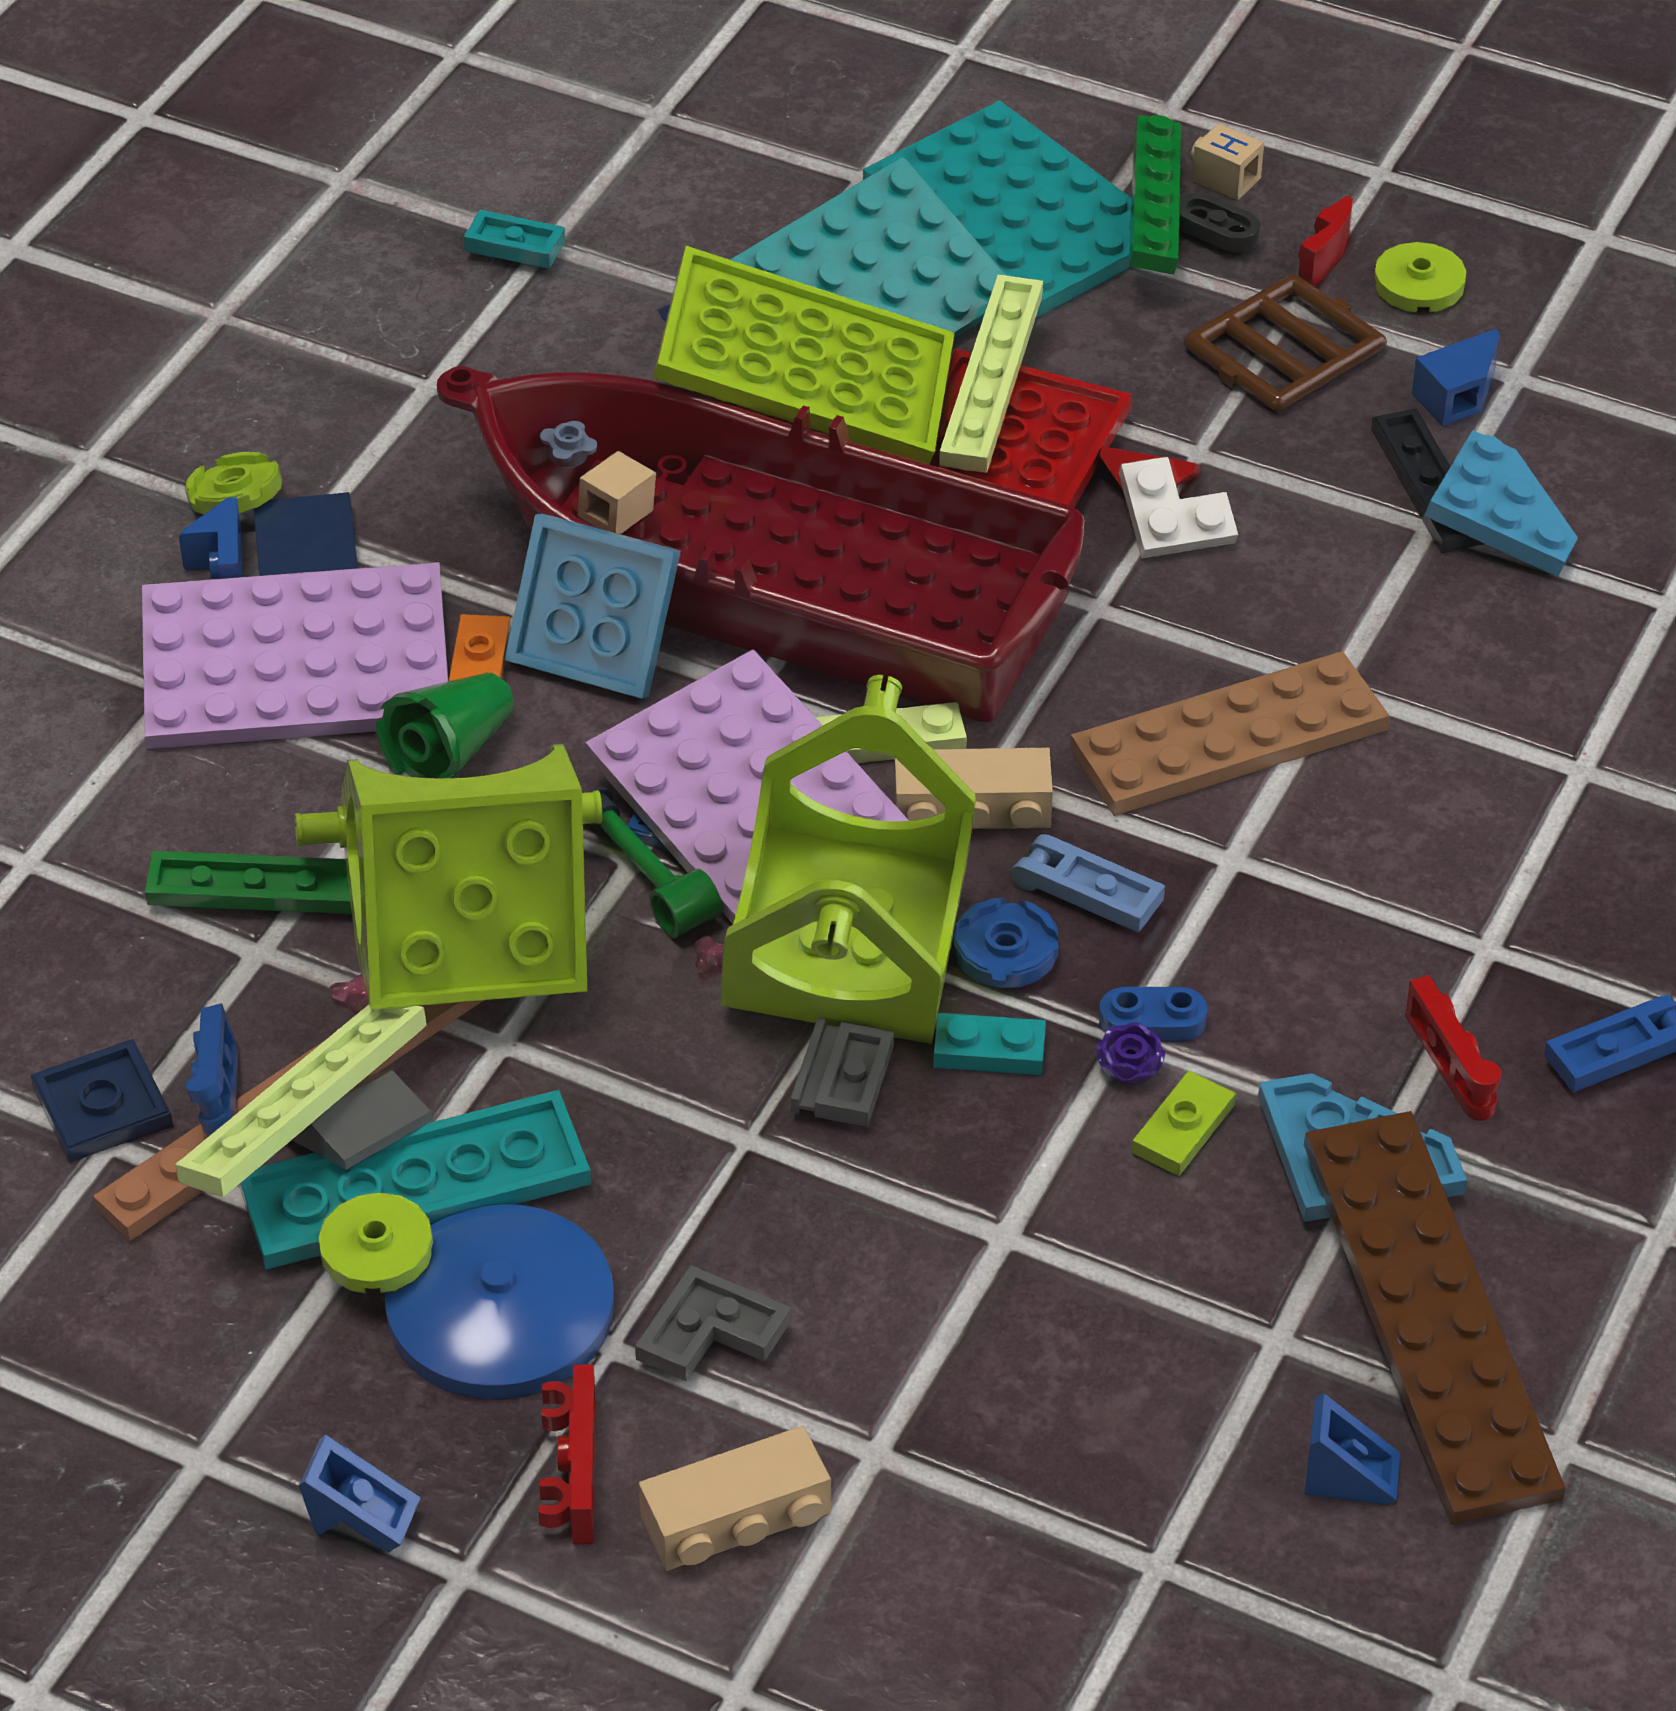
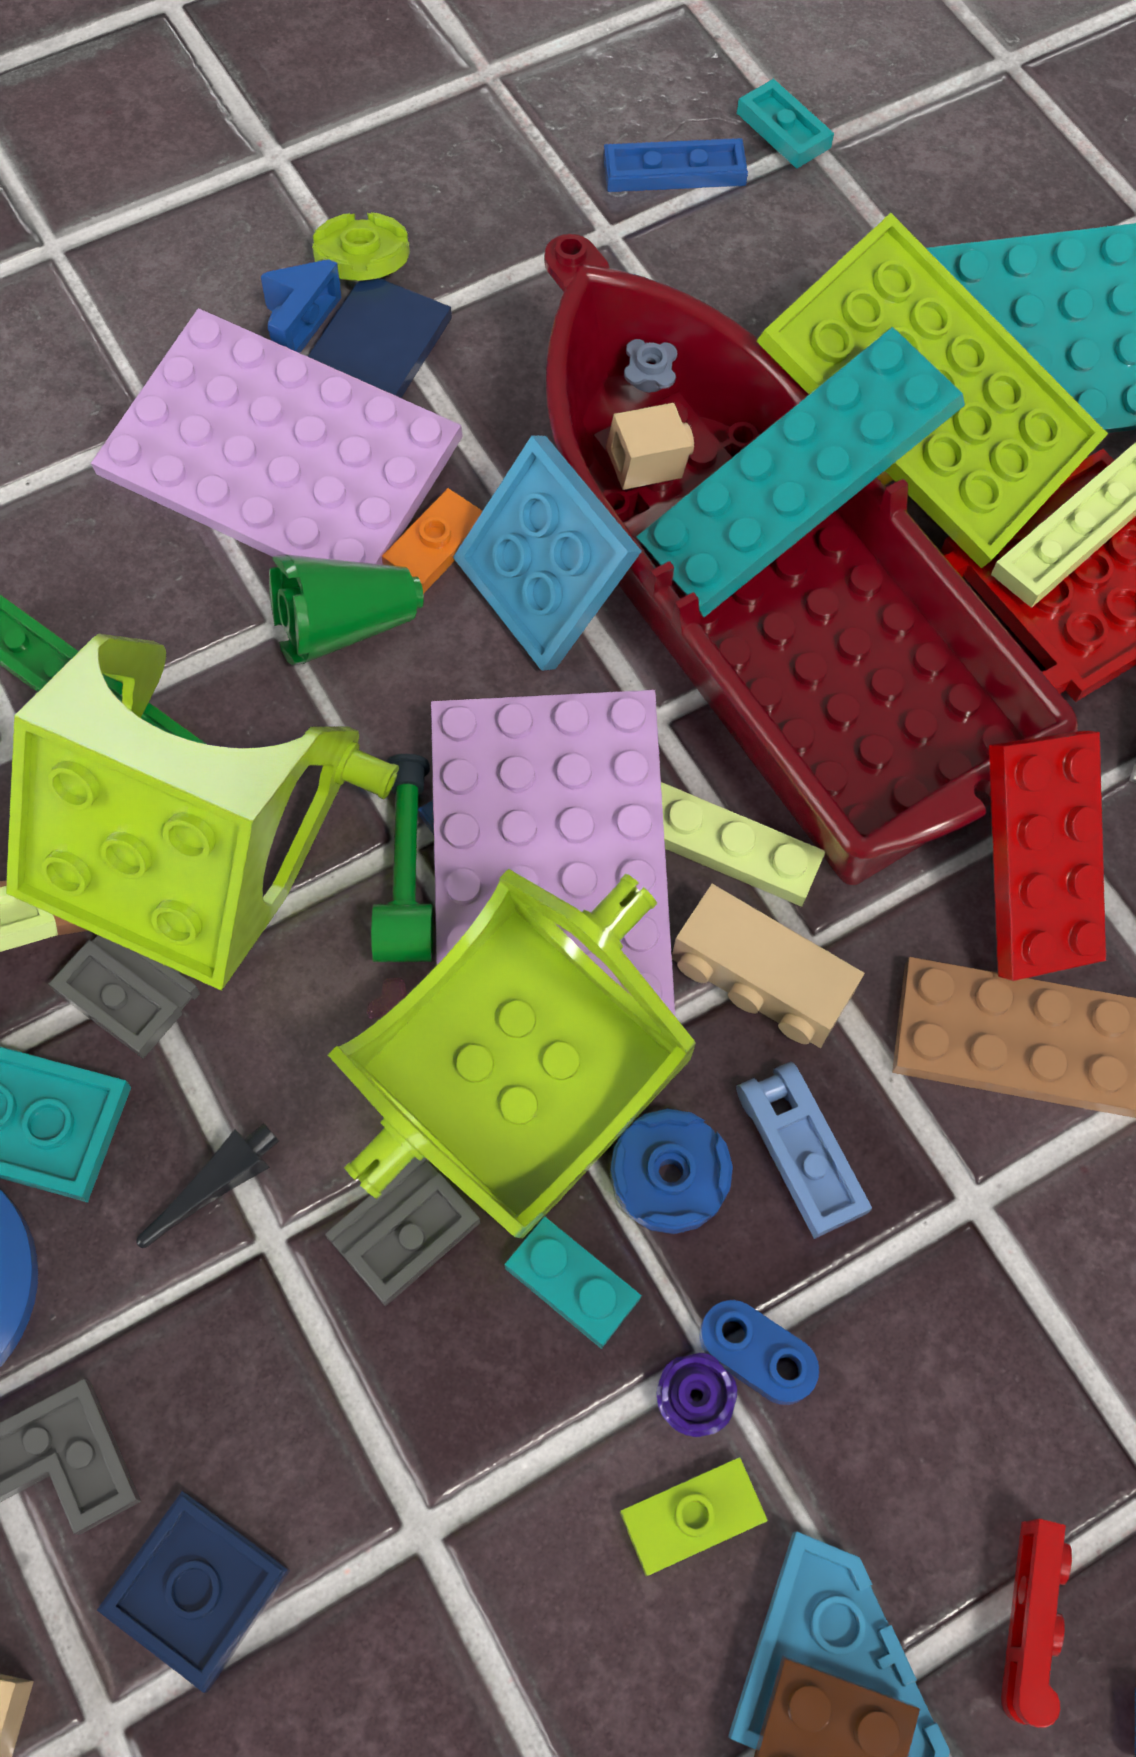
camera: 30 degrees right, 20 degrees up
(444, 311) = (675, 165): none -> blue tile
(501, 1044) = (124, 992): none -> dark grey plate
(682, 1106) = (229, 1167): none -> black piece
(756, 441) = (801, 469): none -> teal plate
(874, 1346) = (193, 1591): none -> dark blue tile
(1122, 605) = (1048, 853): none -> red plate

